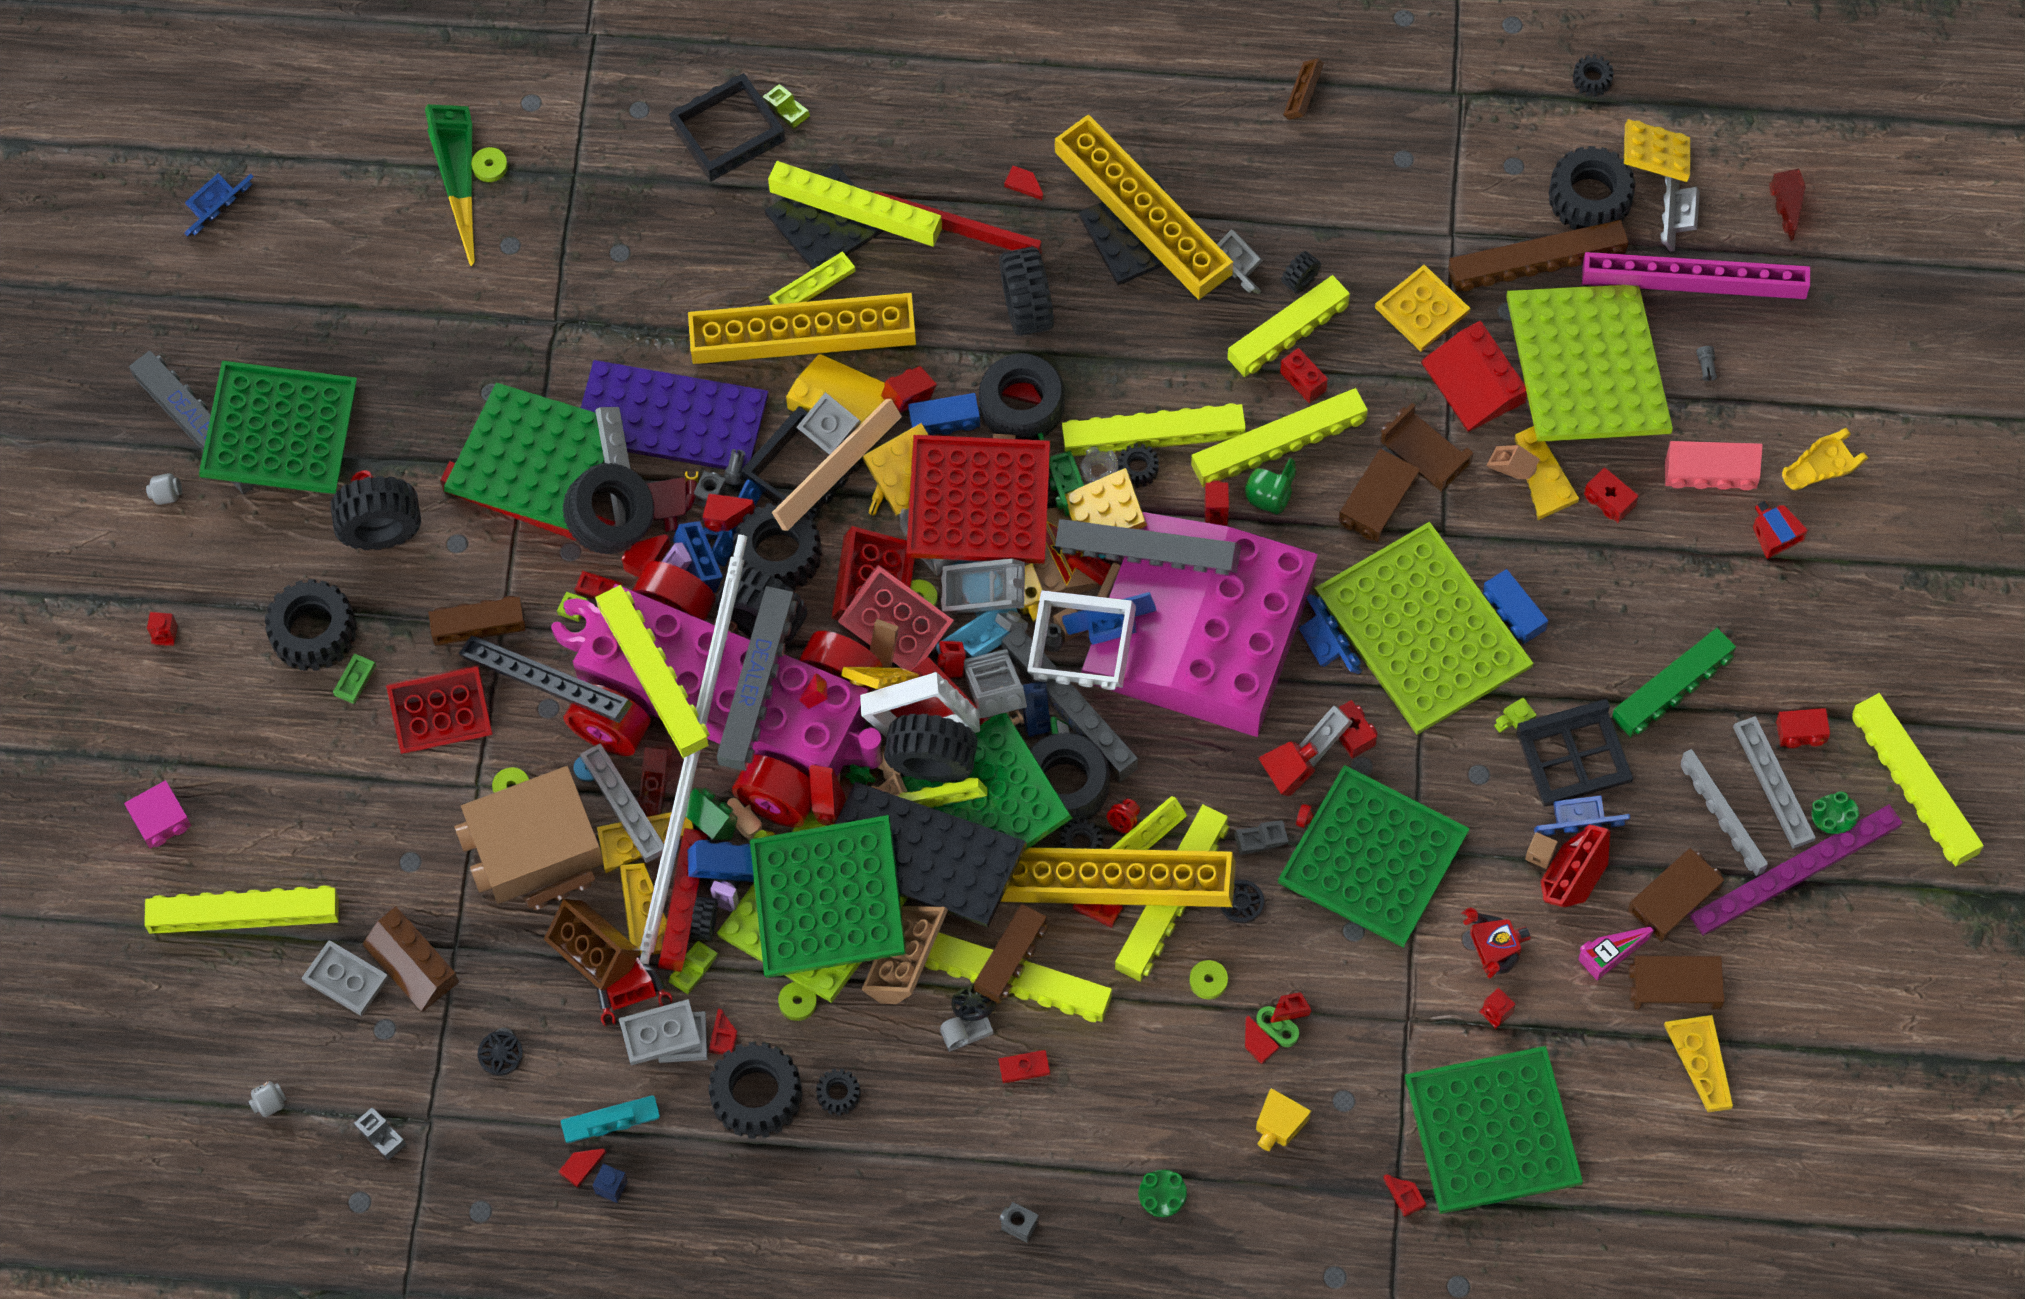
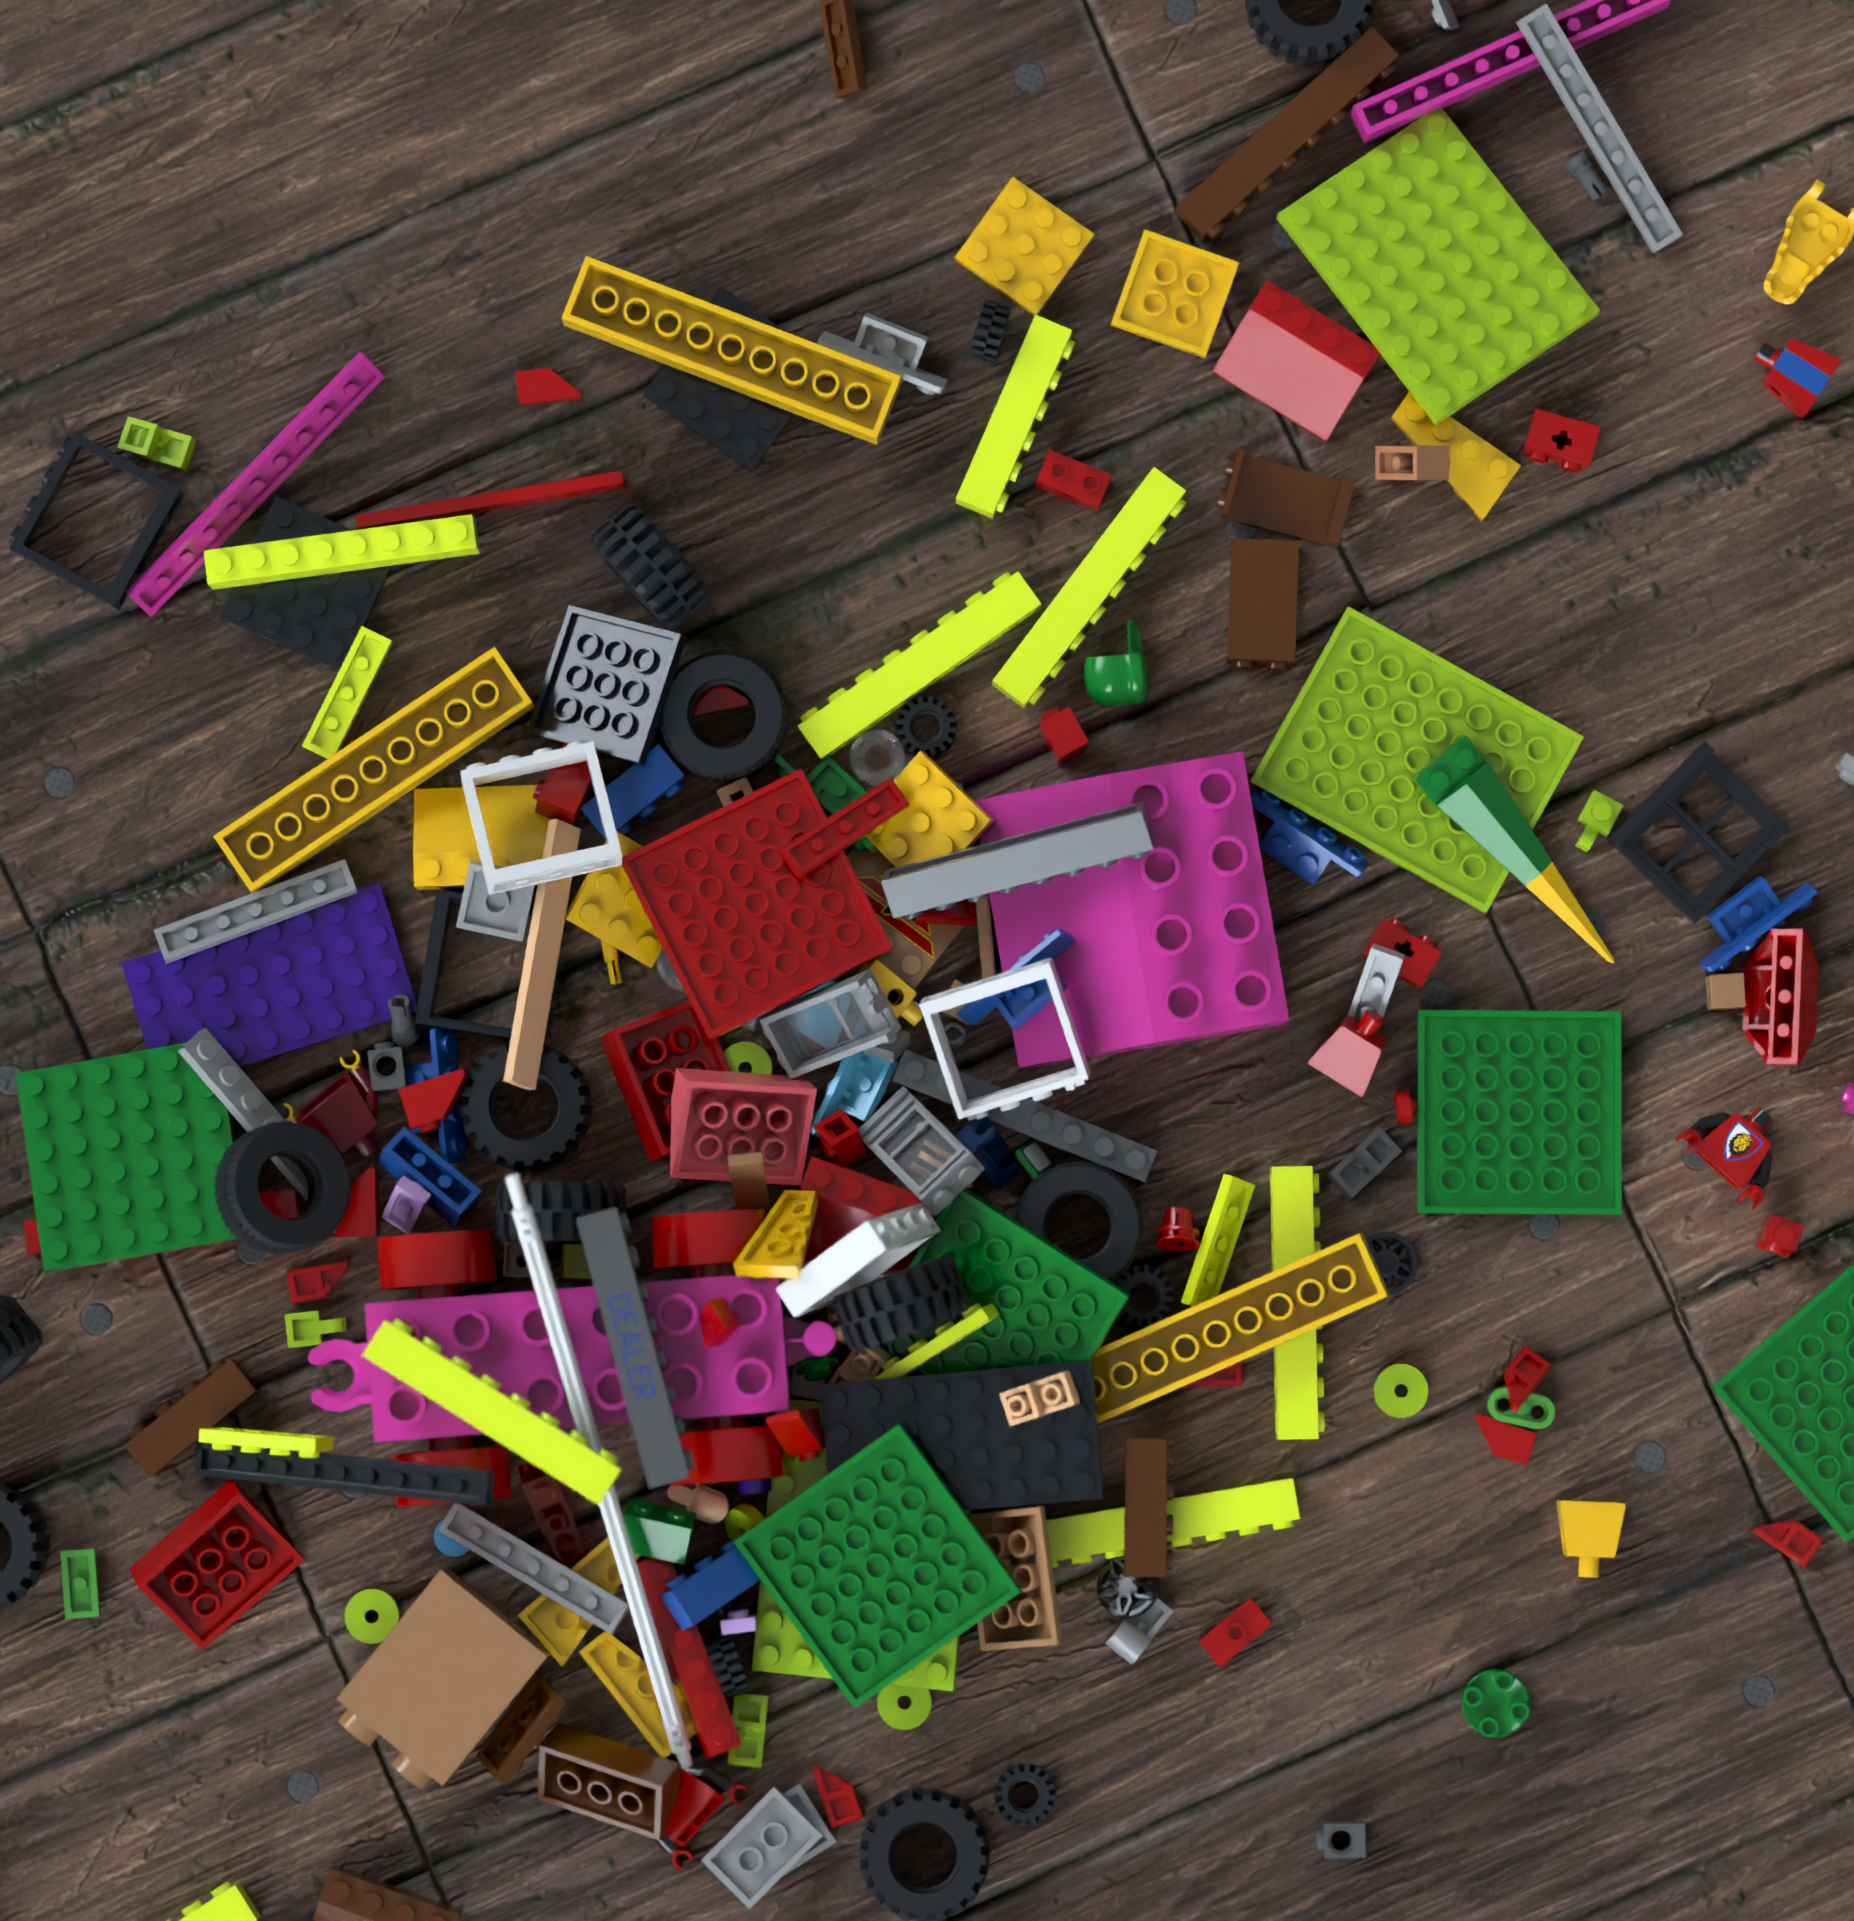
camera: 30 degrees left, 20 degrees up
(516, 644) = (254, 1440): none -> neon yellow plate
(687, 367) = (255, 911): none -> light grey plate
(780, 827) = (754, 1486): none -> dark purple tile
(831, 150) = (255, 483): none -> dark pink plate
(875, 415) = (552, 867): none -> white window
(964, 346) = (607, 684): none -> plate
(980, 845) = (1039, 1398): none -> light nougat slope
(1055, 482) = (844, 828): none -> red tile
(1348, 242) = (1024, 246): none -> yellow plate
(1446, 664) = (1478, 803): none -> green plate
(1515, 606) = (1518, 668): blue brick -> none
(1673, 683) = (1774, 666): green brick -> none
(1713, 465) = (1674, 330): coral slope -> none
(1727, 335) = (1599, 128): none -> light grey plate

